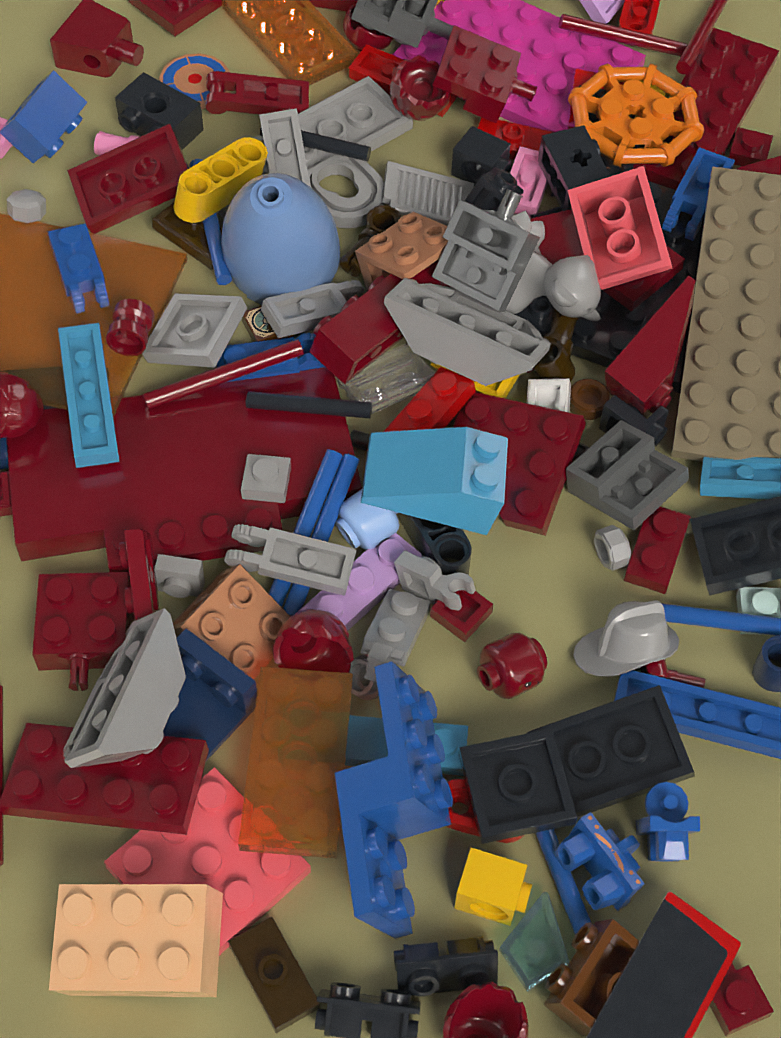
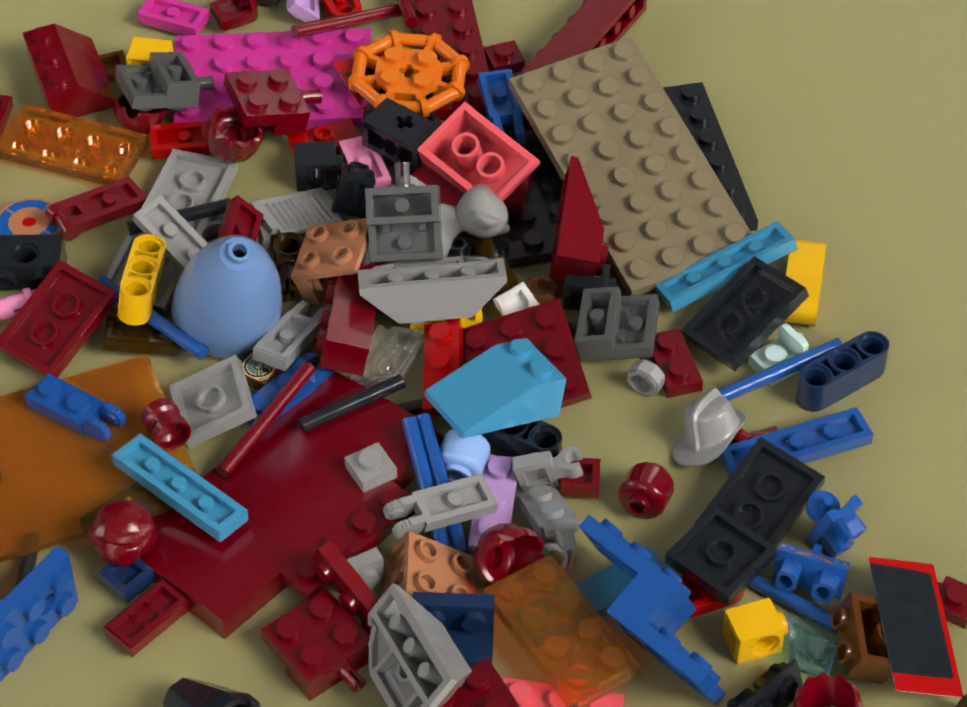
camera: 35 degrees left, 10 degrees down
(349, 181) = (241, 219): none -> dark red plate

